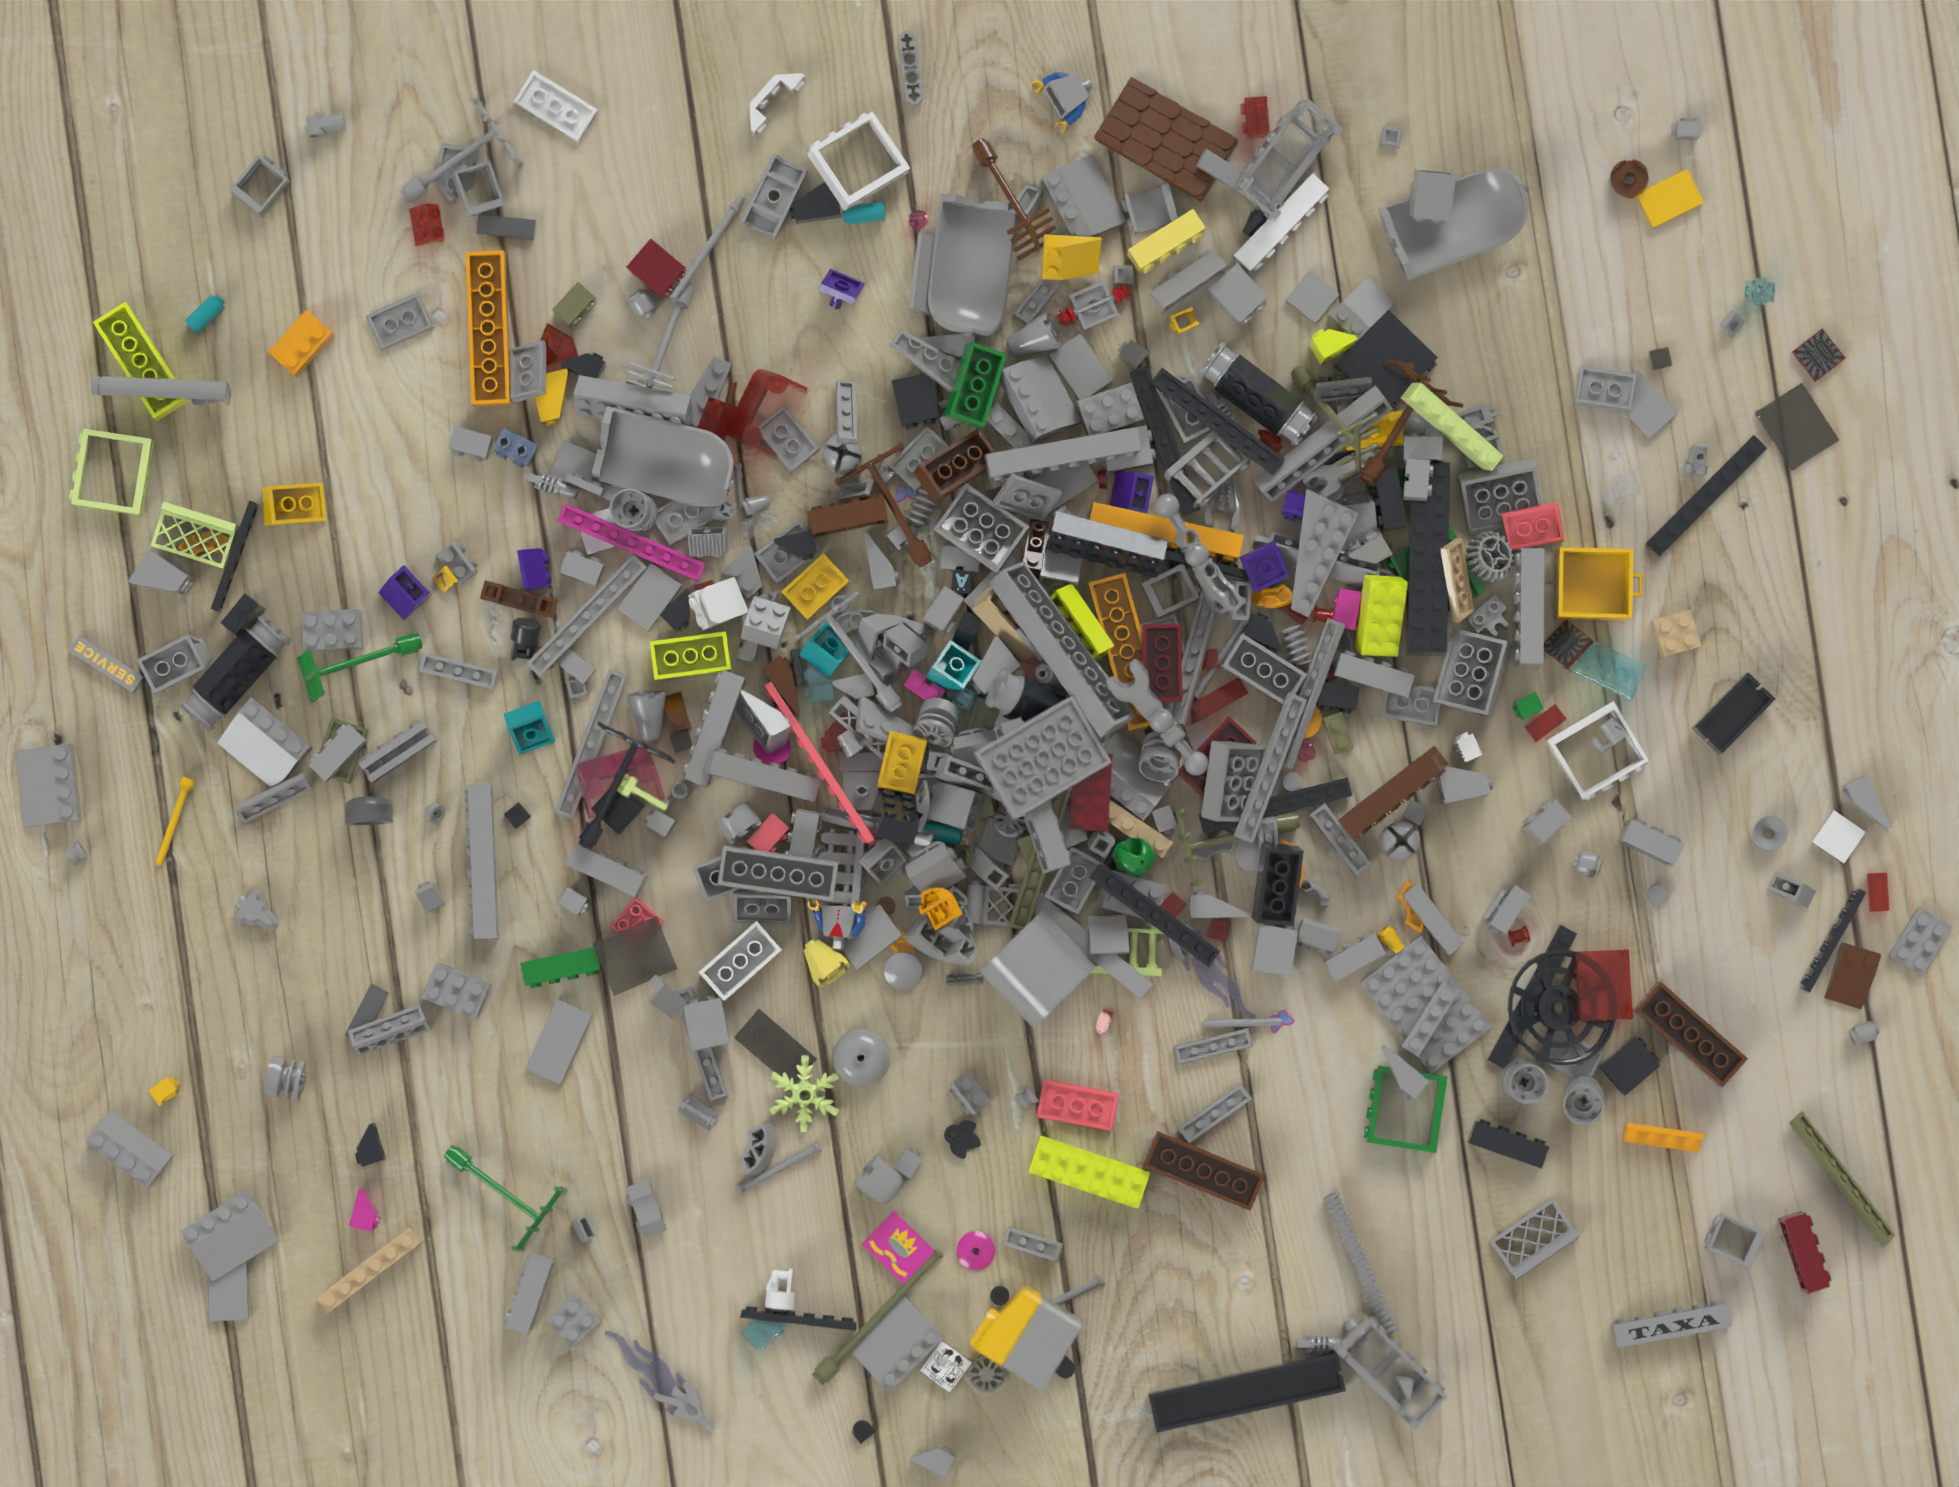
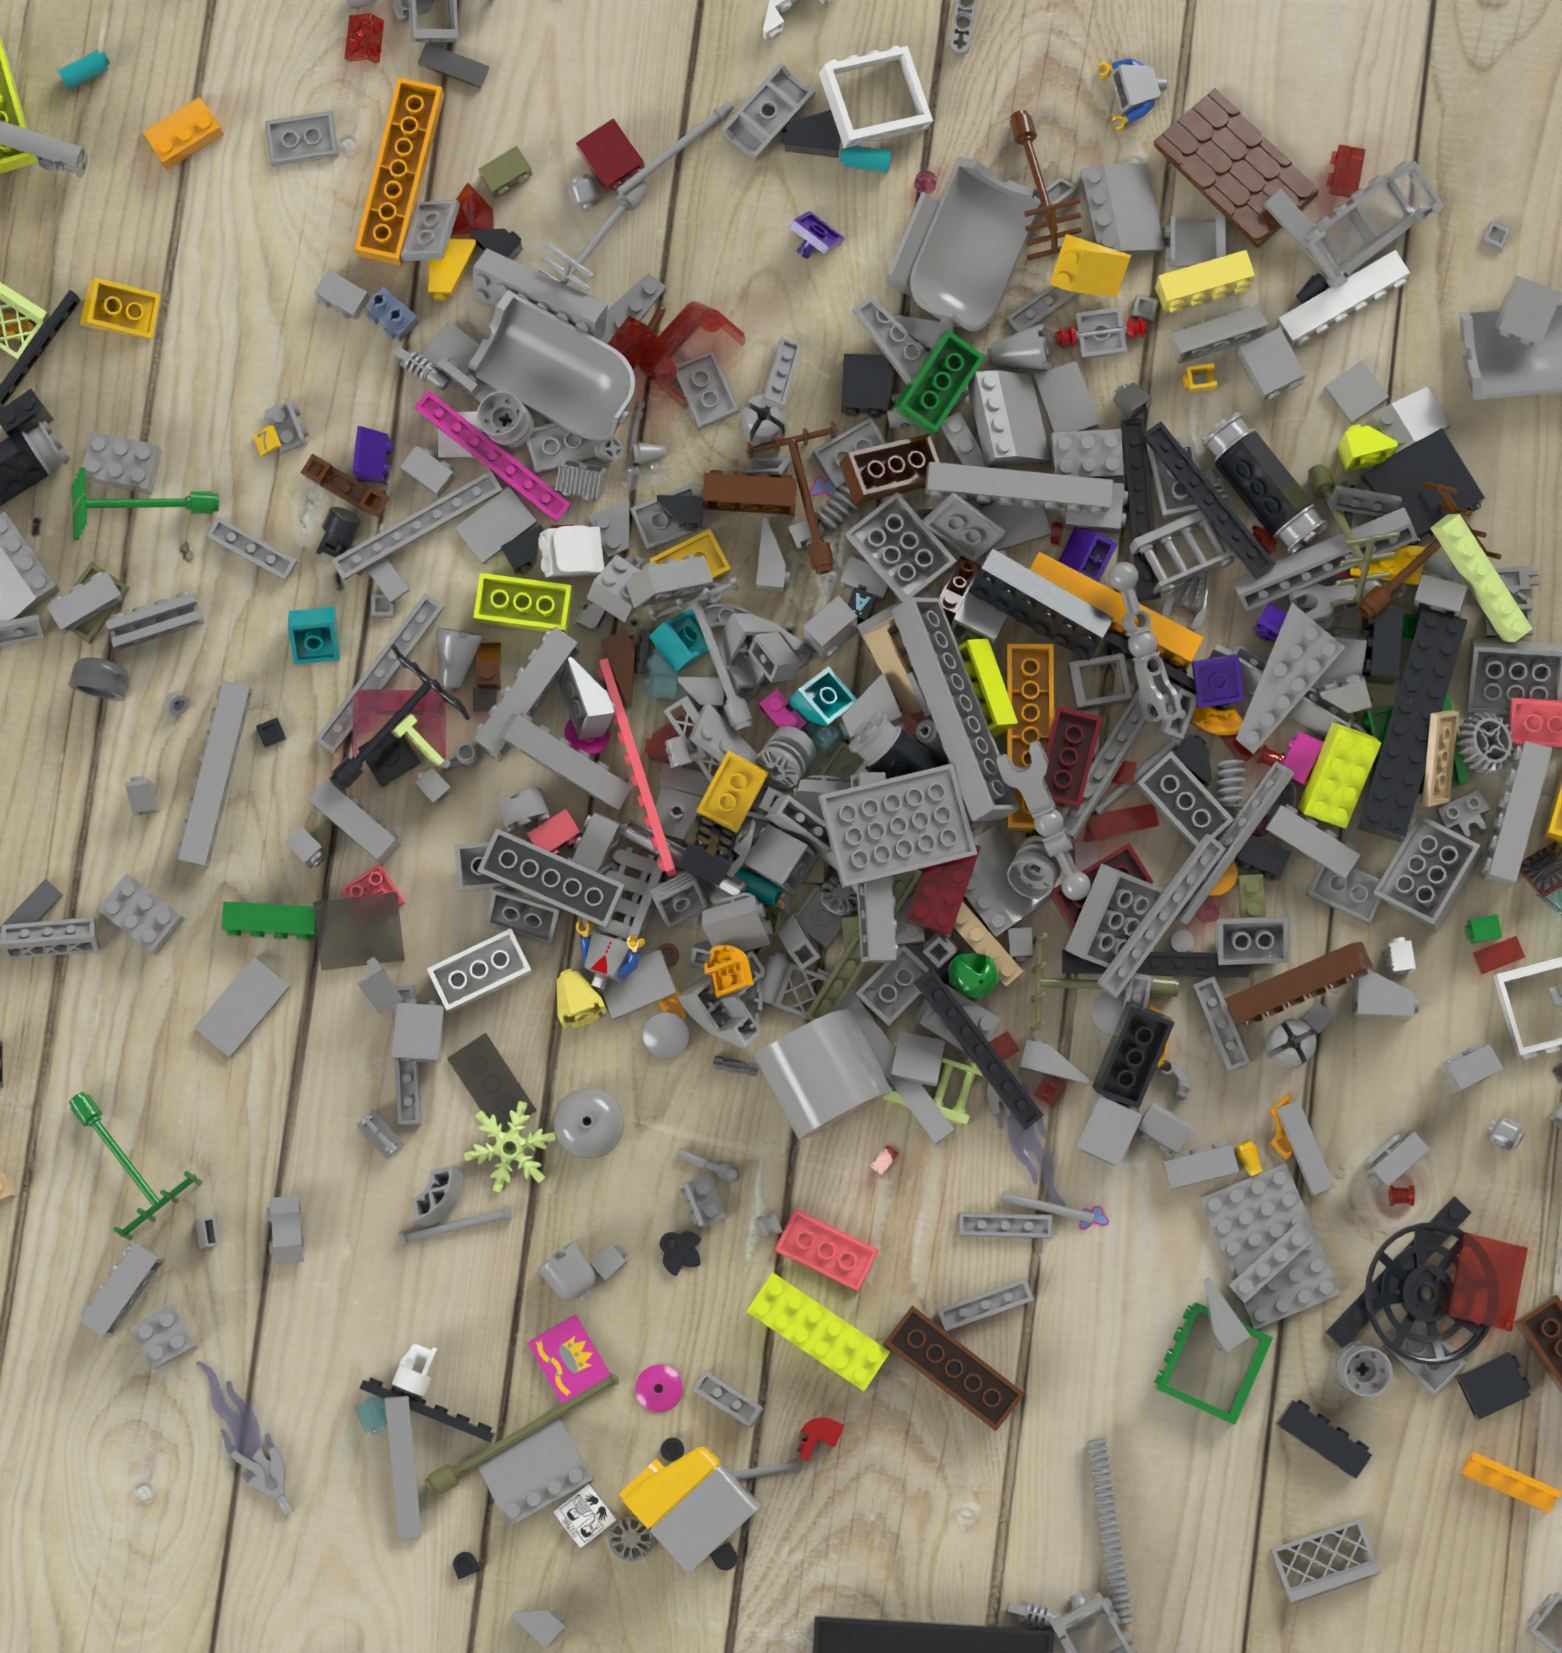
camera: 20 degrees right, 5 degrees down
(404, 592) = (216, 442): dark purple slope -> none
(792, 1369) = (403, 1467): none -> light grey tile
(804, 607) = (669, 581): none -> light grey brick
(885, 474) = (807, 459): light grey wheel -> none
(966, 630) = (851, 661): black slope -> none
(978, 1065) = (724, 1171): none -> light grey piece
(1110, 1247) = (819, 1429): none -> red brick
(1205, 853) = (1057, 996): light grey tile -> none
(1347, 767) = (1252, 940): none -> light grey slope
(1417, 486) = (1422, 635): light grey brick -> none
(1586, 1110) = (1427, 1424): light grey wheel -> none

